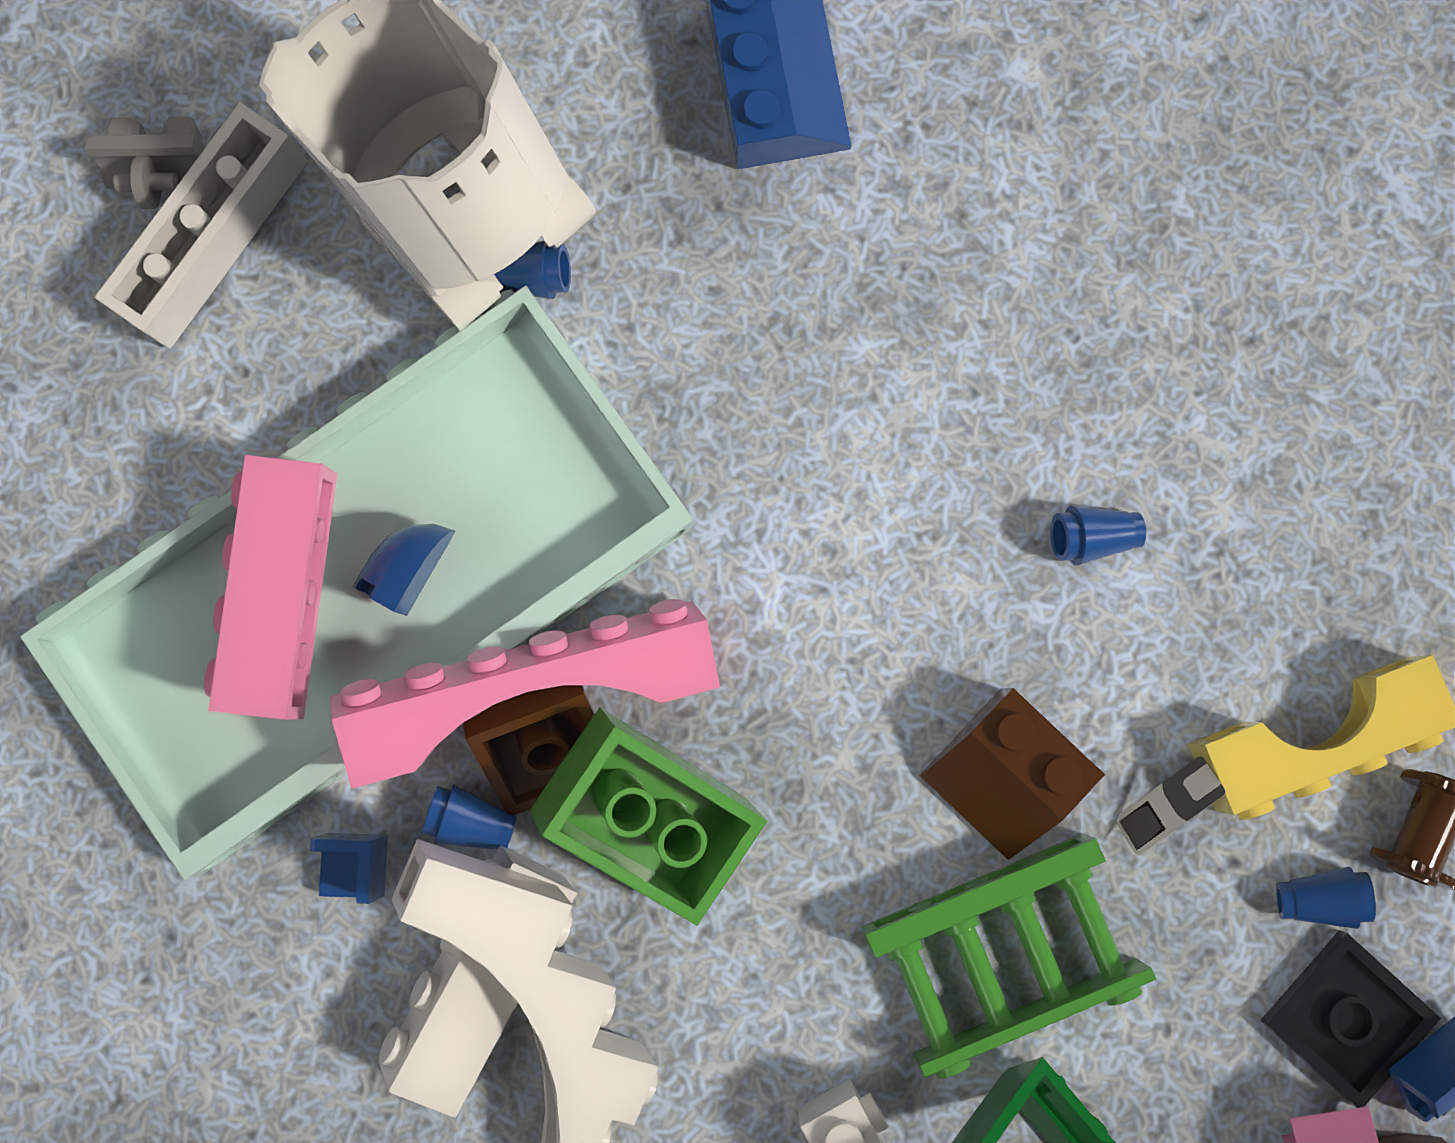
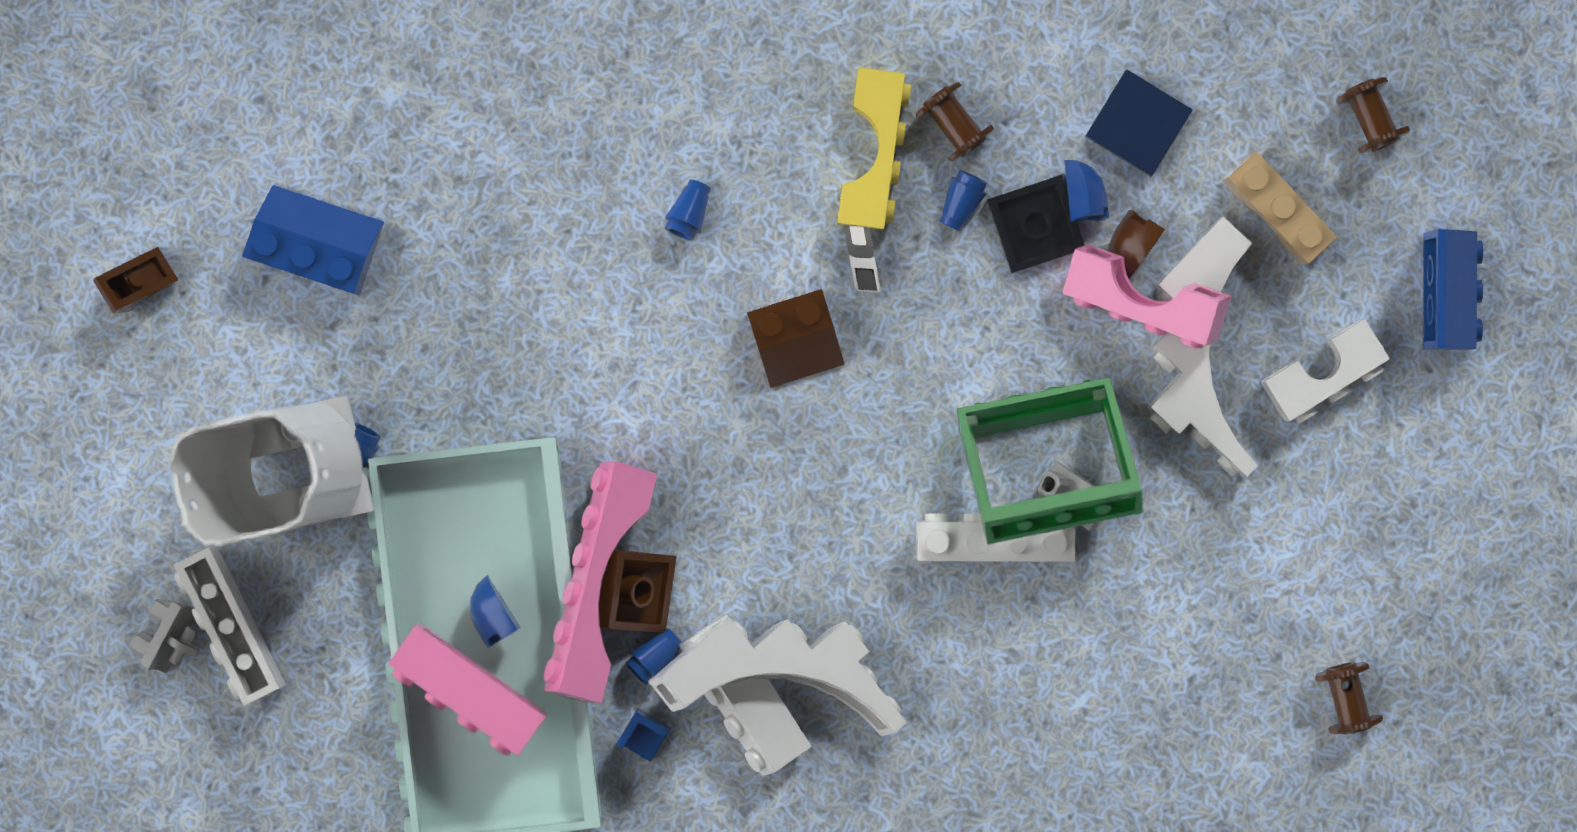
camera: 60 degrees left, 5 degrees up
(647, 817) = (705, 552): bright green brick -> none
(1013, 891) = (862, 373): bright green fence -> none

